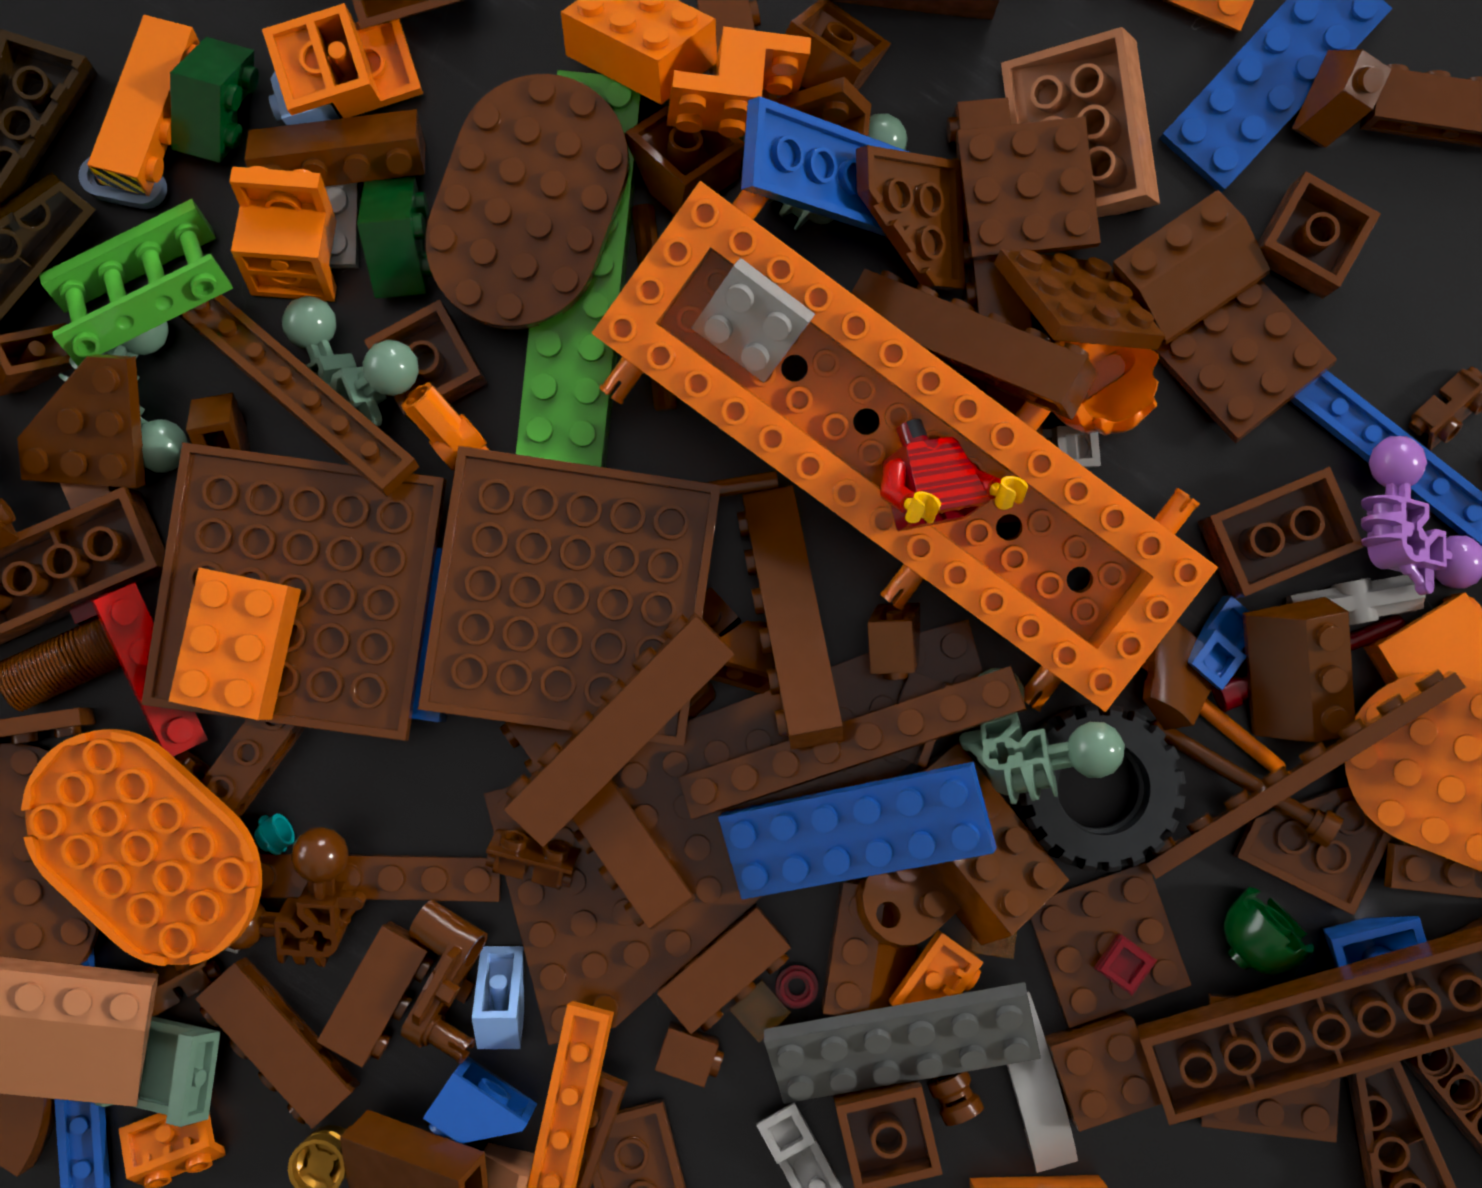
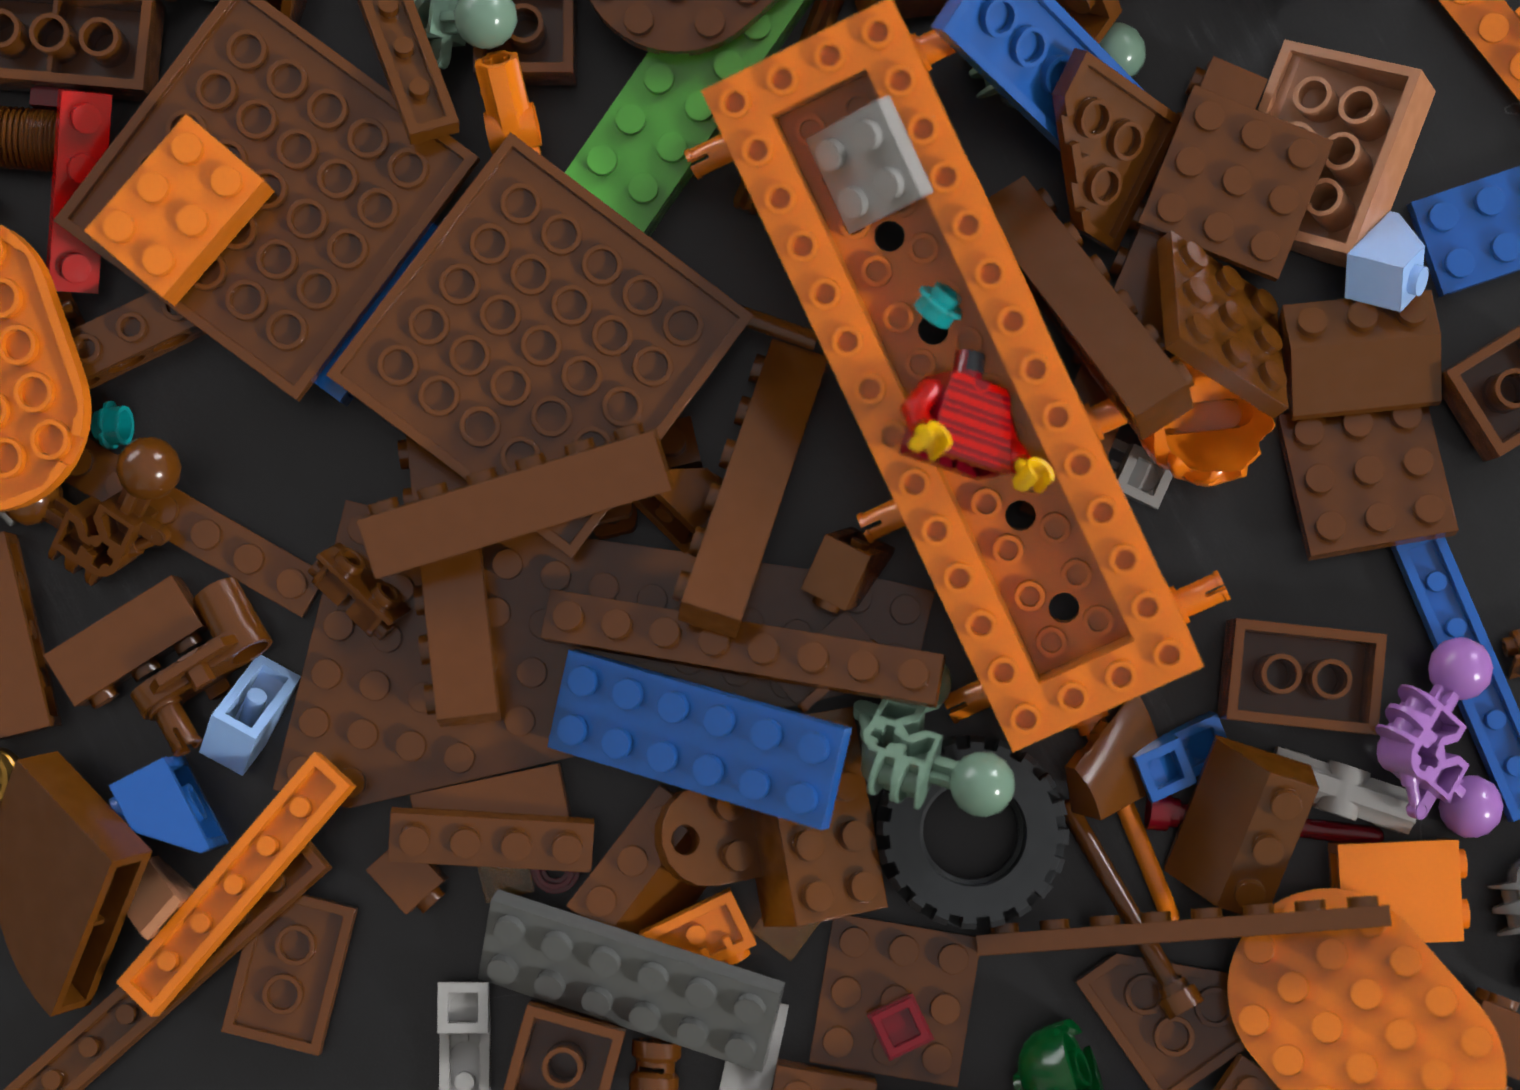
camera: 30 degrees right, 0 degrees up
(738, 994) = (490, 839): none -> reddish brown plate
(863, 399) = (939, 305): none -> teal plate
(1177, 188) = (1387, 265): none -> light blue slope

